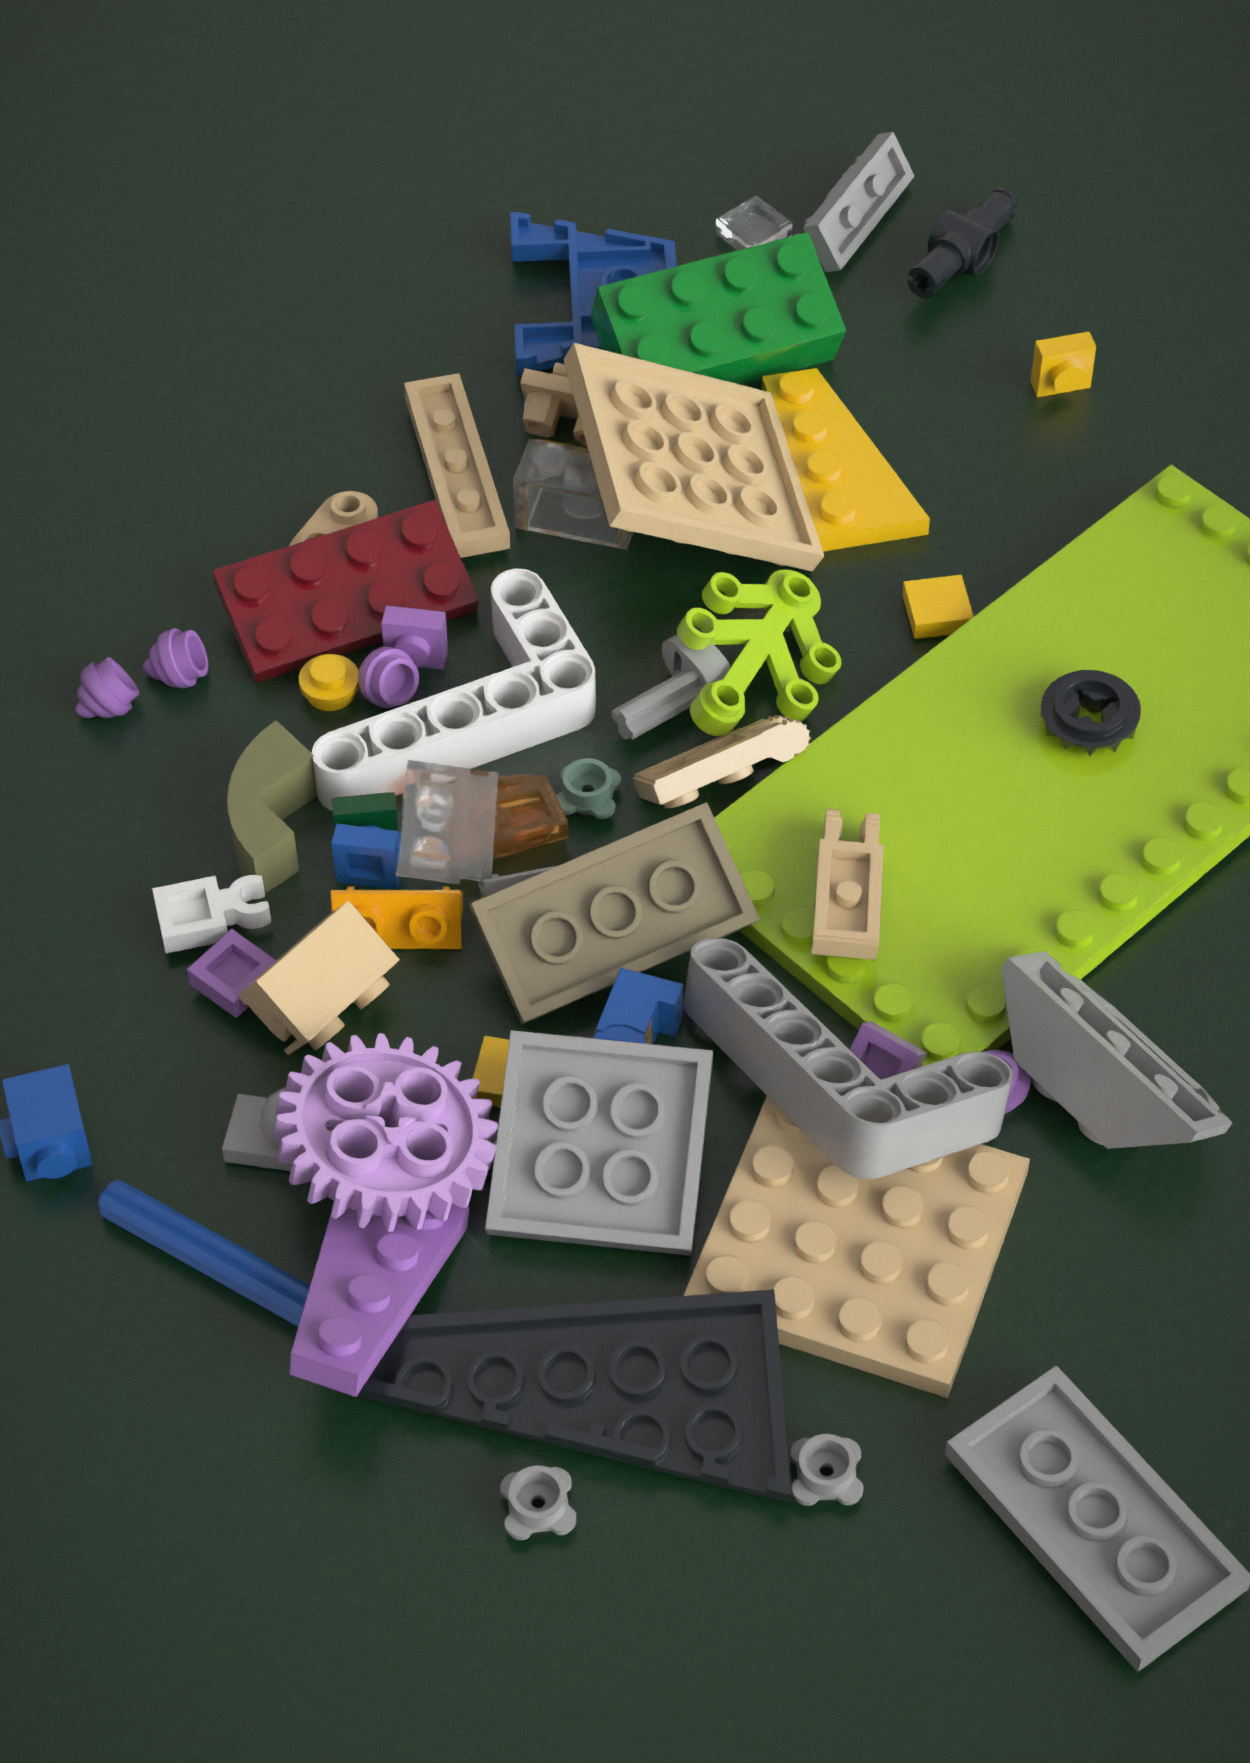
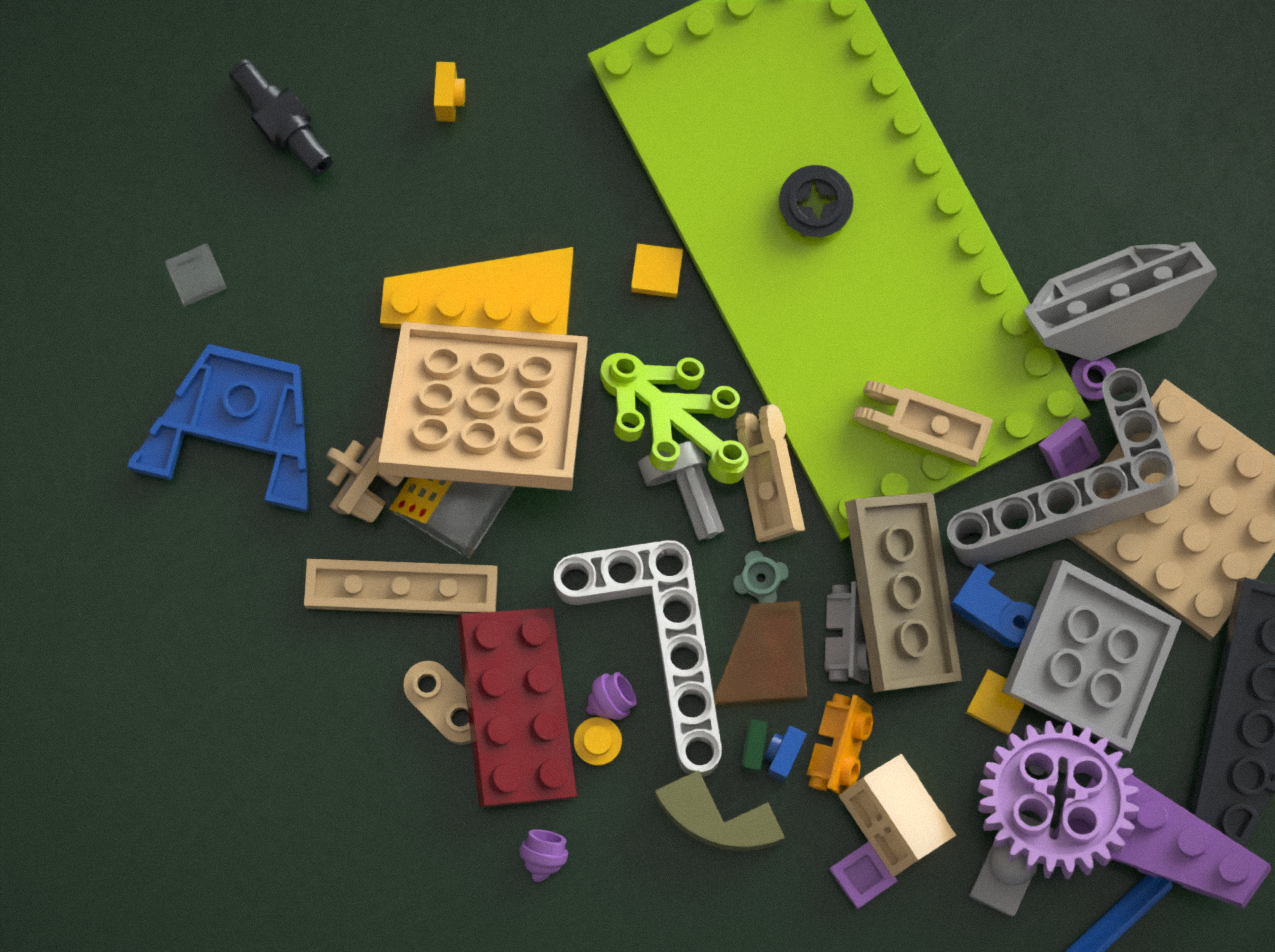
camera: 75 degrees left, 25 degrees up
(105, 690) = (560, 914): medium lavender plate -> none
(199, 912) = (800, 890): white plate -> none
(418, 634) = (584, 666): medium lavender plate -> none
(446, 823) = (792, 688): clear plate -> none
(726, 314) = (331, 340): green brick -> none
(858, 201) = (205, 185): light grey plate -> none

